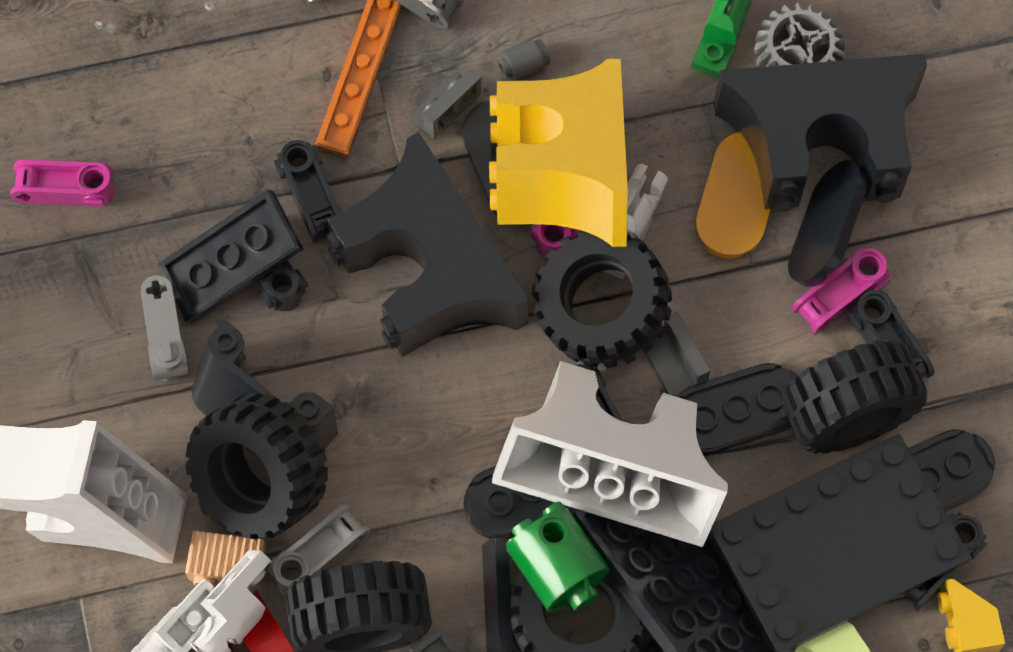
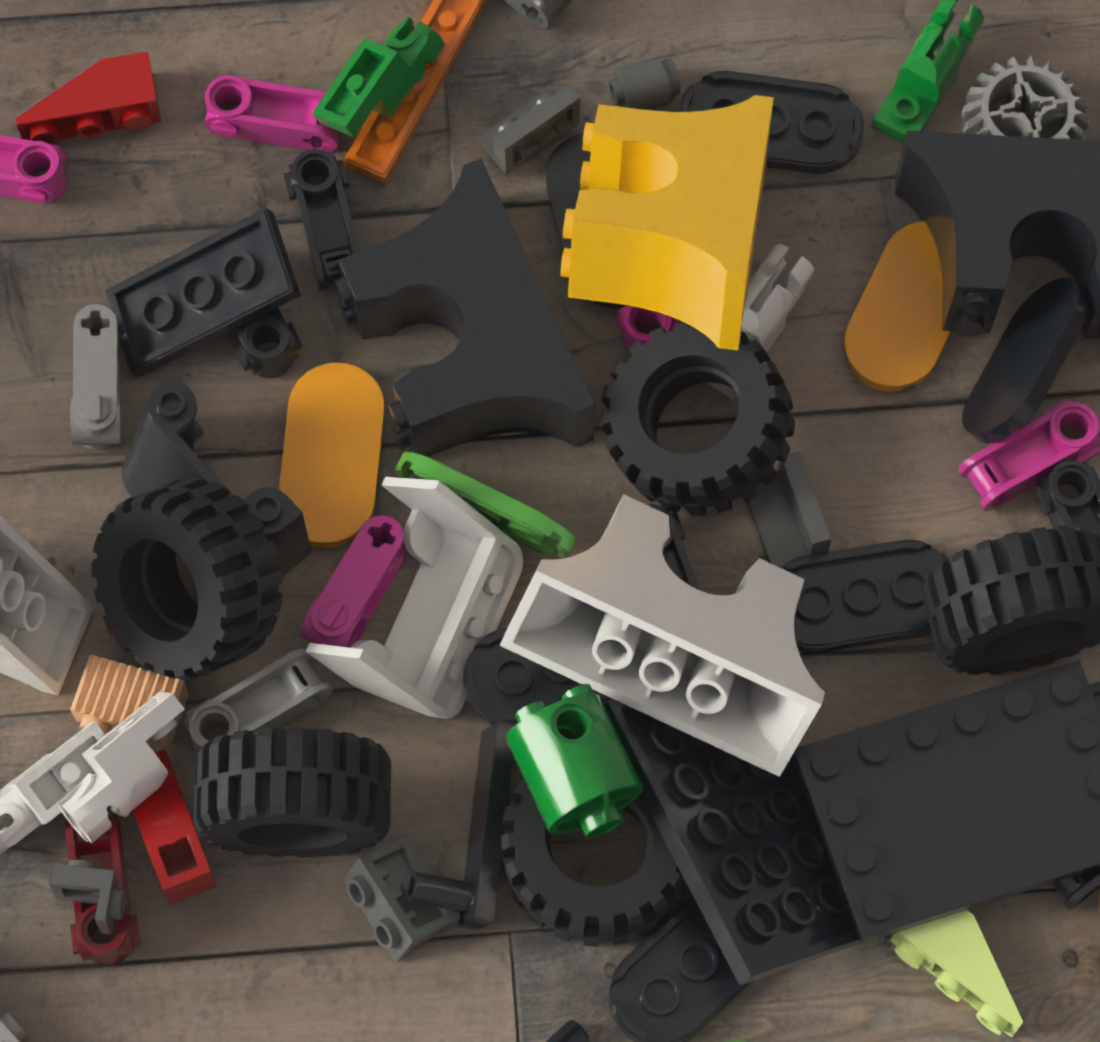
camera: 10 degrees right, 0 degrees up
(132, 123) = (101, 99): none -> red slope
(259, 117) = (267, 113): none -> dark pink piece
(332, 81) = (379, 77): none -> green plate
(343, 357) = (333, 451): none -> light orange tile
(376, 454) = (357, 584): none -> dark pink piece
(443, 462) = (451, 604): none -> white windscreen
(460, 382) = (509, 515): none -> bright green tile
(649, 70) = (811, 122): none -> black tile

